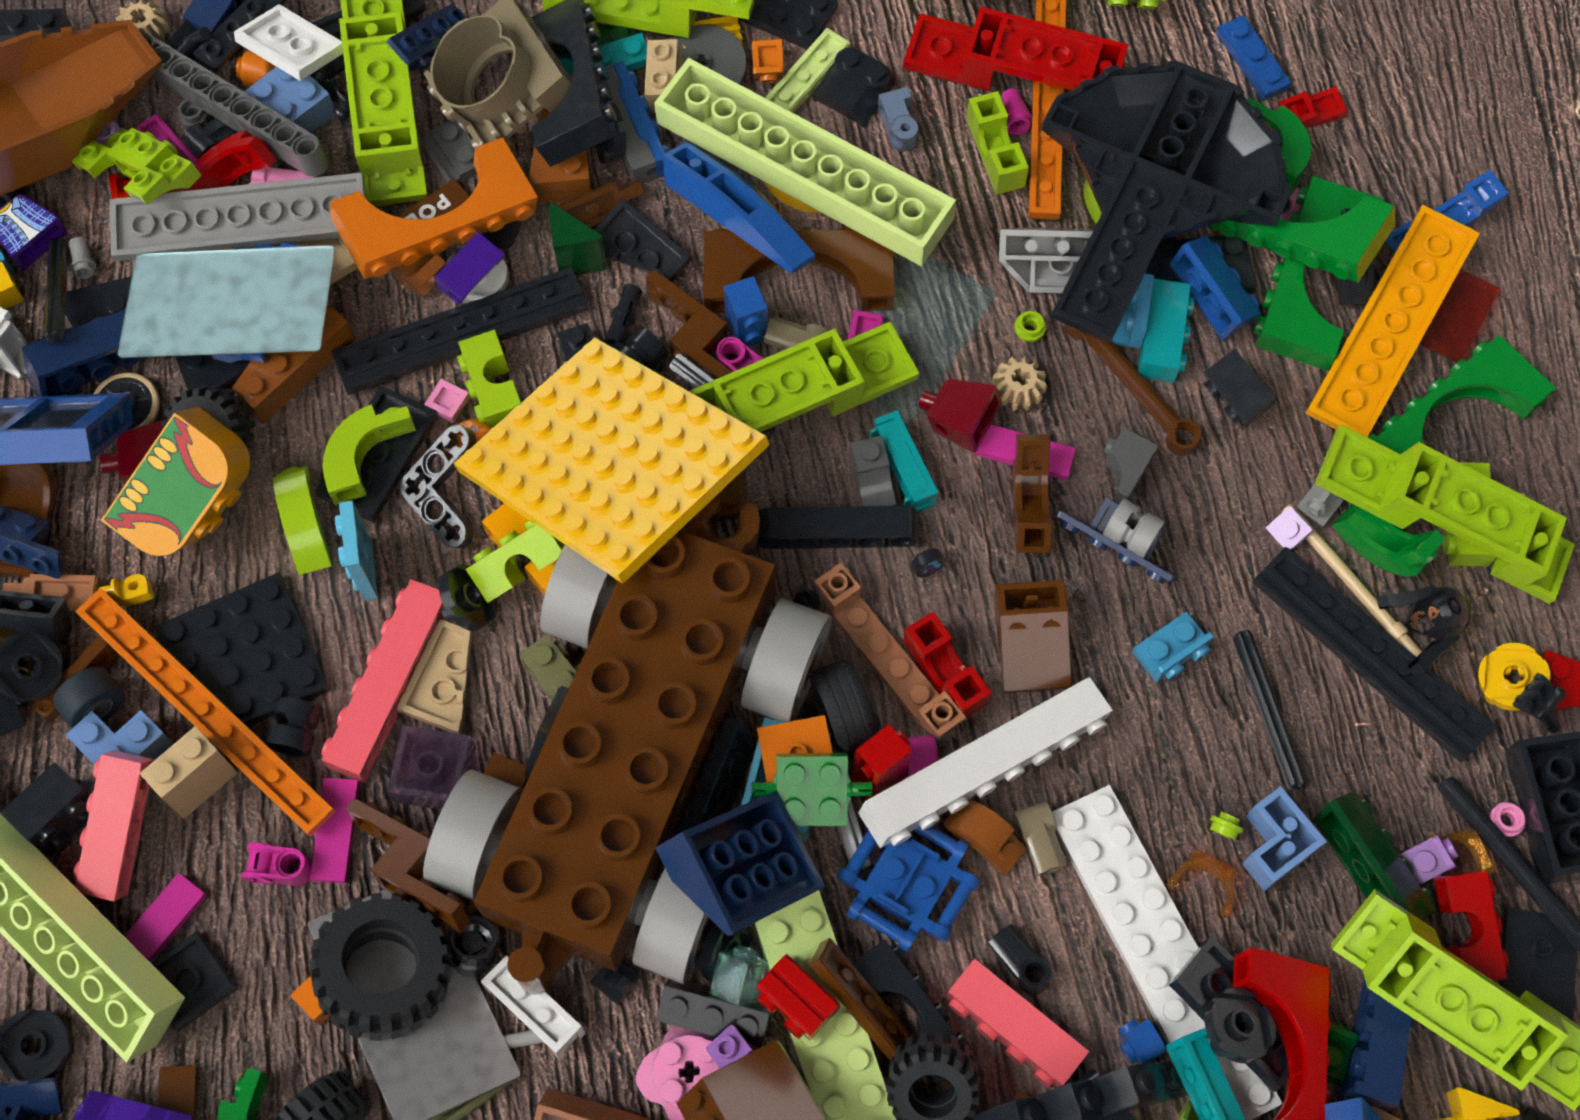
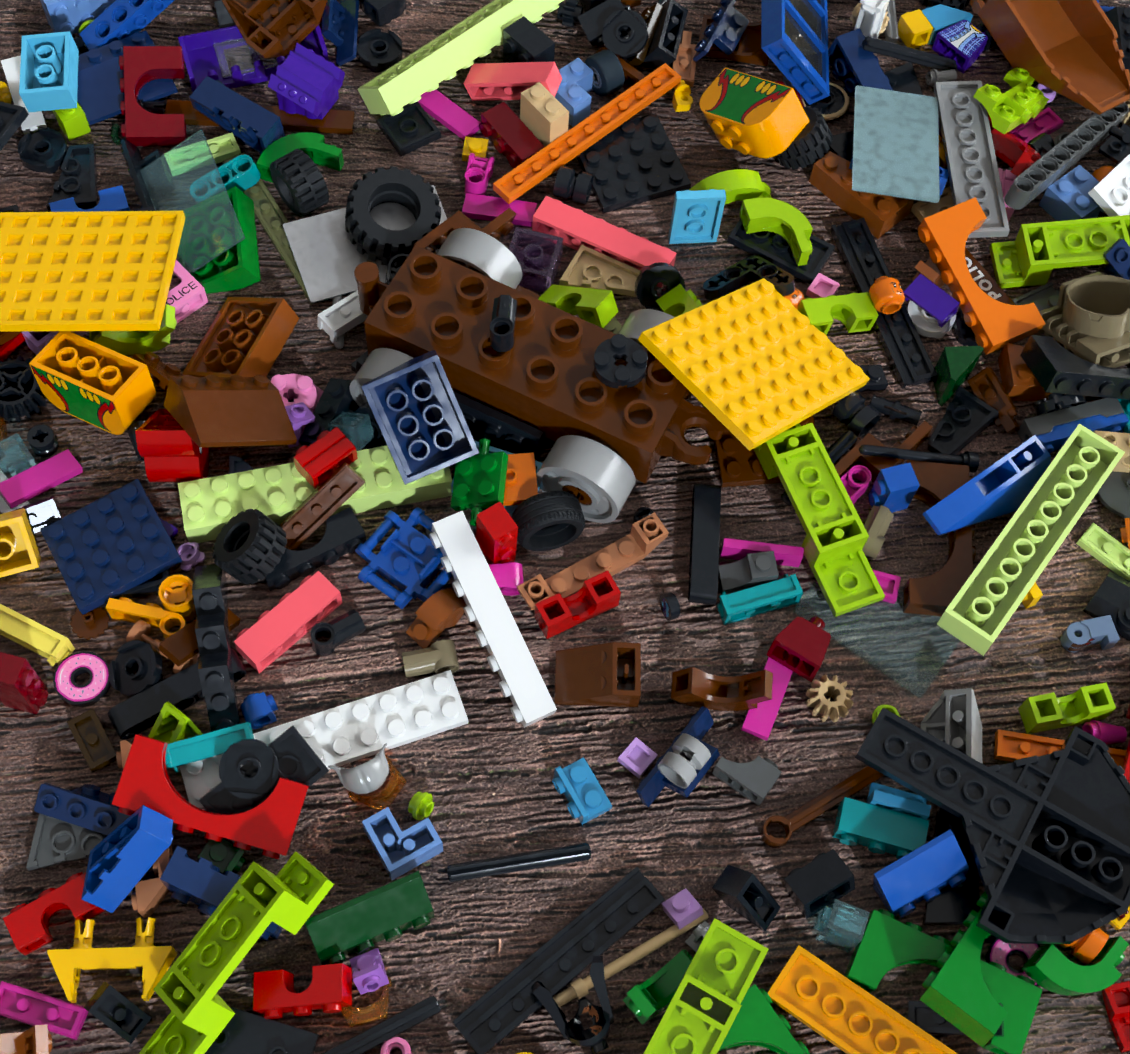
camera: 90 degrees right, 5 degrees down
(208, 823) = (509, 134): none -> dark red brick
(225, 877) = (475, 145): none -> yellow plate
(465, 318) = (887, 295): none -> orange head
(500, 722) = (590, 304): none -> lime arch
(612, 754) = (503, 323): none -> black piece
(654, 584) = (620, 348): none -> black plate
(693, 236) = (967, 458): none -> black piece
(842, 459) = (784, 554): none -> dark pink tile
(1124, 587) = (637, 757): none -> lavender plate
(1207, 893) = (364, 777): none -> light grey hair
(1264, 465) = (746, 896): none -> black slope
(1286, 362) = (841, 925): none -> clear light blue brick

